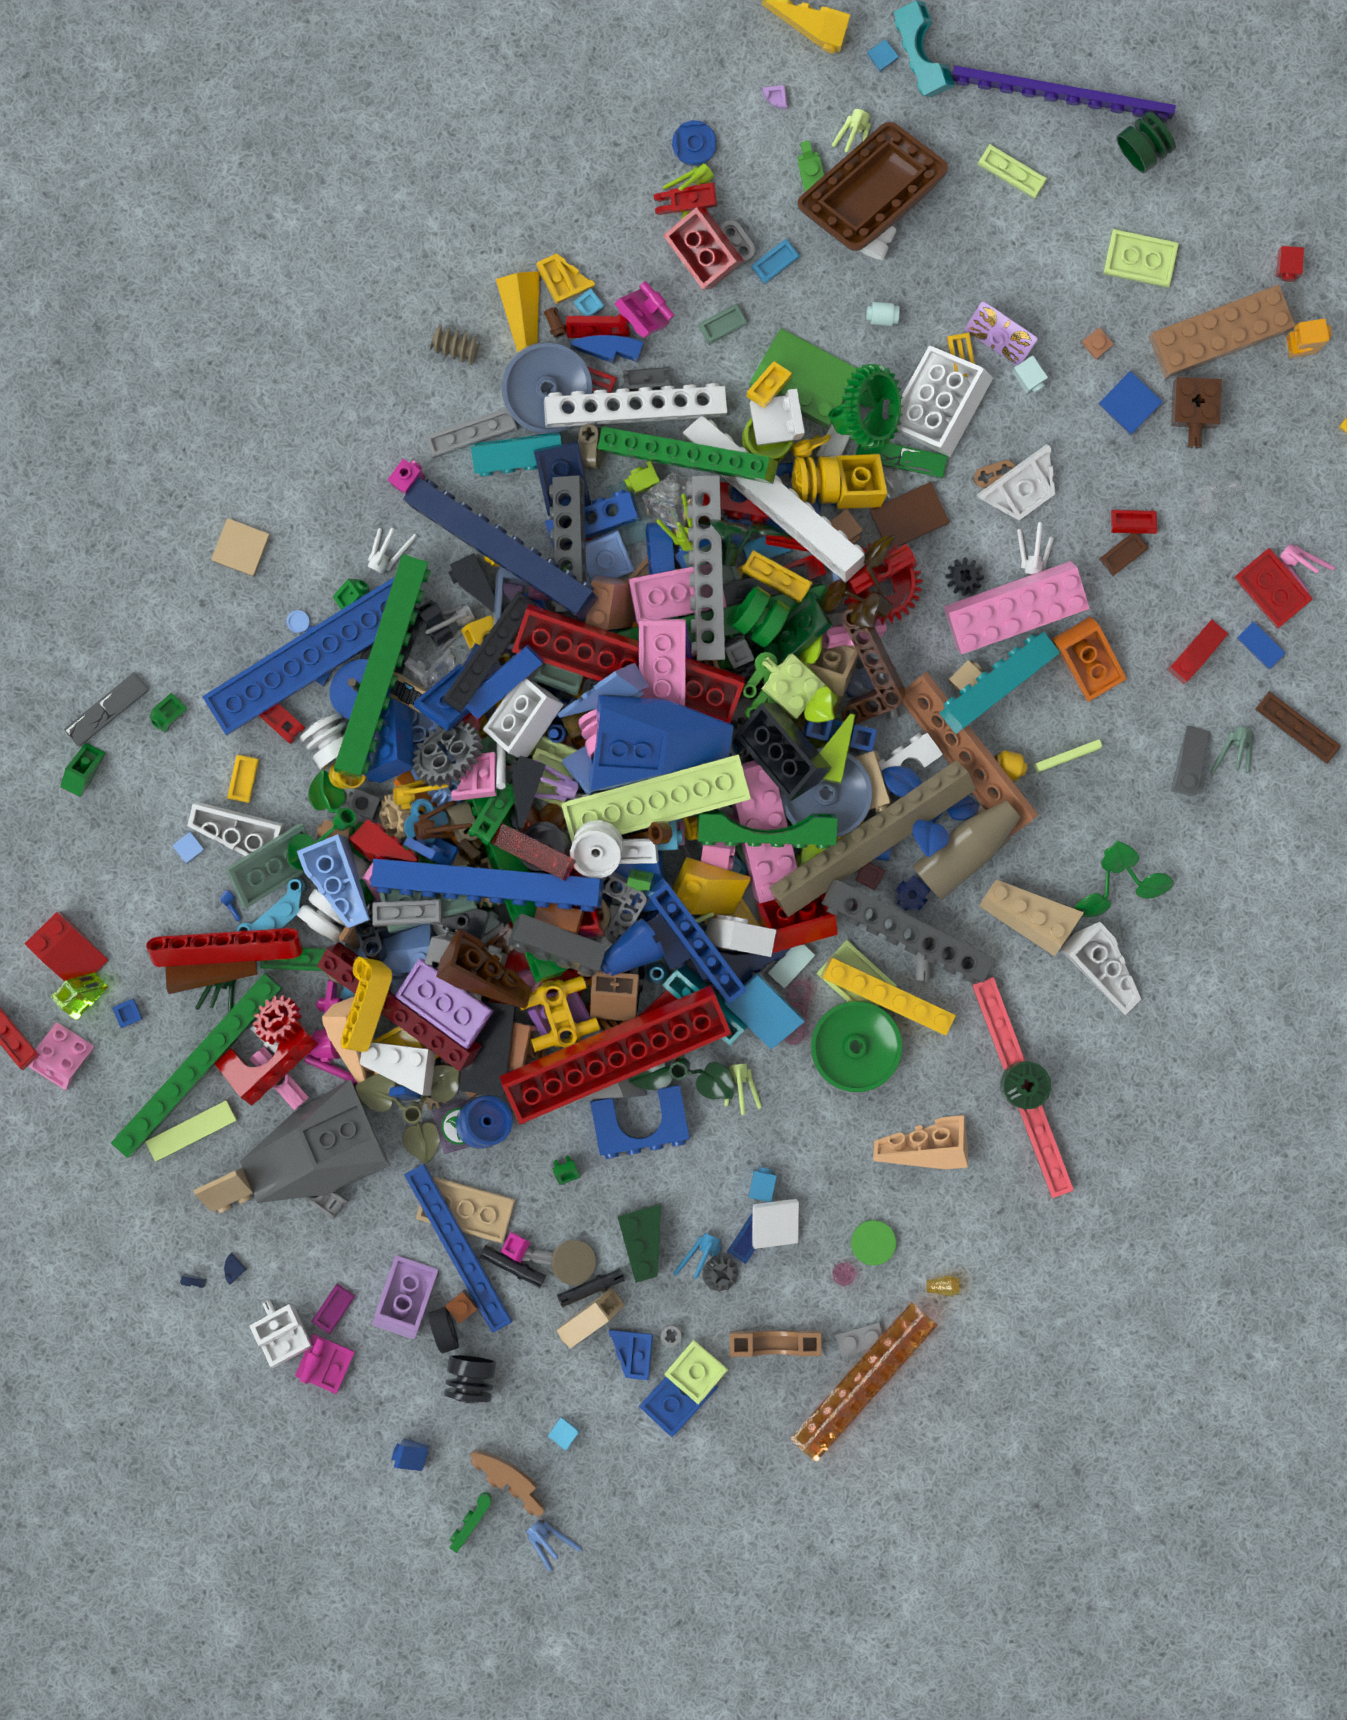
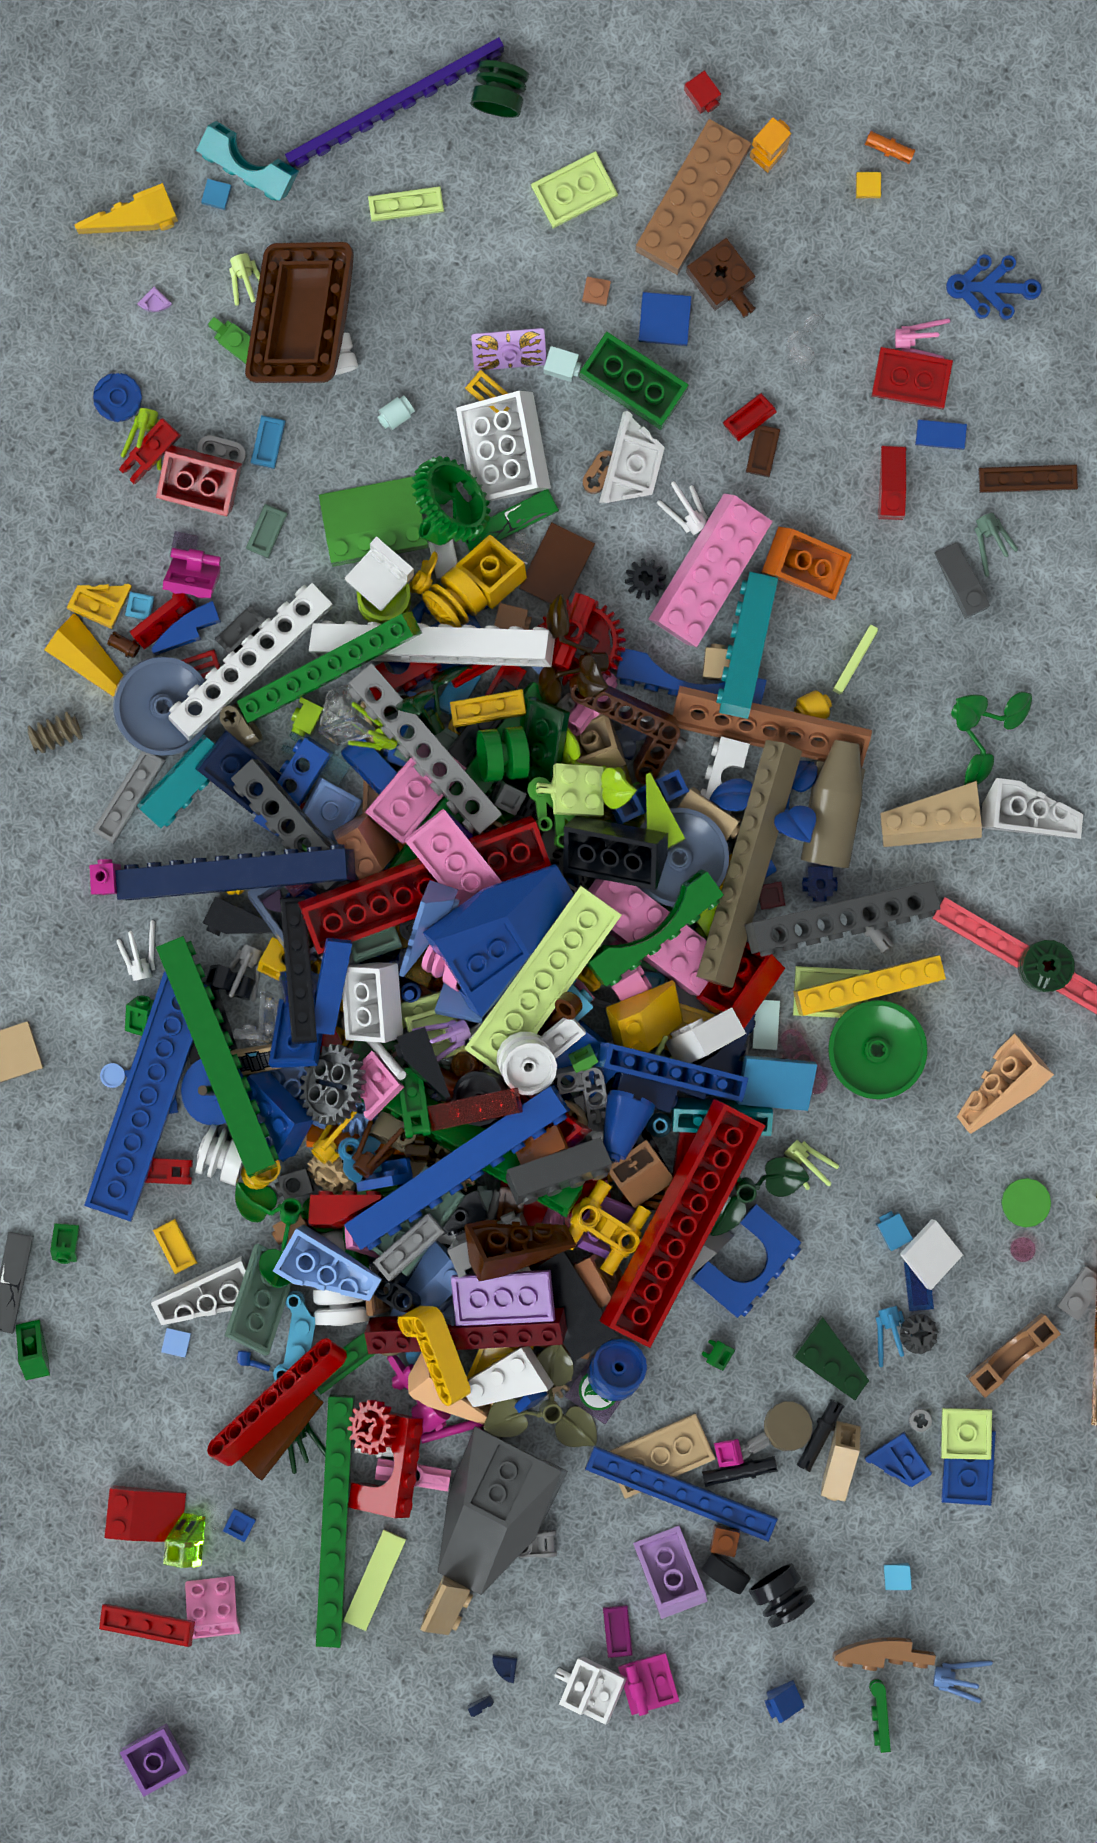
camera: 40 degrees left, 0 degrees up
(658, 284) = (184, 541): none -> clear purple tile
(769, 384) = (349, 552): yellow plate -> none
(908, 638) = (640, 669): none -> blue arch
(1071, 428) = (633, 380): none -> green brick

